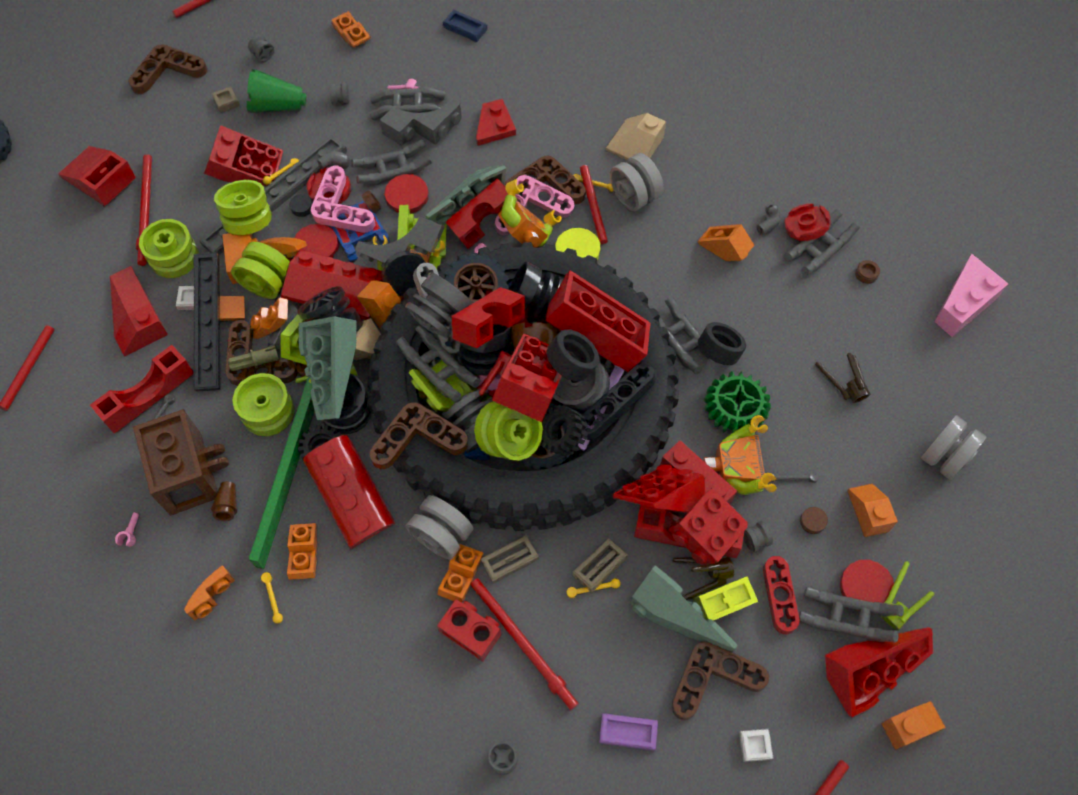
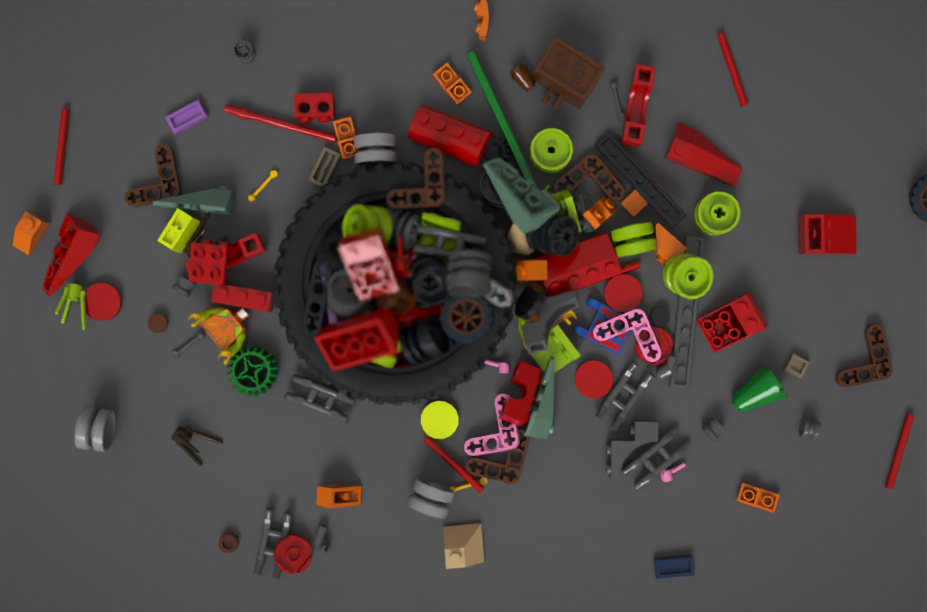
camera: 145 degrees right, 25 degrees up
(128, 533) = (566, 20): bright pink hand -> none
(144, 204) = (770, 237): red bar -> none
(185, 298) = (674, 190): white tile -> none
(253, 359) = (584, 175): olive axle -> none
(266, 579) = (460, 53): yellow hinge -> none
(268, 179) = (696, 348): yellow hinge -> none
(285, 245) = (638, 271): orange slope -> none
(371, 201) = (610, 352): reddish brown tile -> none
(475, 322) = (431, 303): red arch -> none
(494, 123) = (579, 488): red wing -> none
(521, 222) = (481, 403): torso -> none
(565, 363) = (356, 280): black tyre -> none
(585, 579) = (260, 196): dark tan tile -> none
(665, 489) = (252, 264): red slope -> none
(722, 343) = (284, 417): black tyre -> none
(756, 745) = (111, 160): white tile -> none
(792, 612) = (144, 245): red beam -> none
(865, 608) = (92, 281): dark grey piece -> none
(872, 509) = (126, 354): orange slope -> none
(970, 295) = (146, 567): bright pink wedge -> none

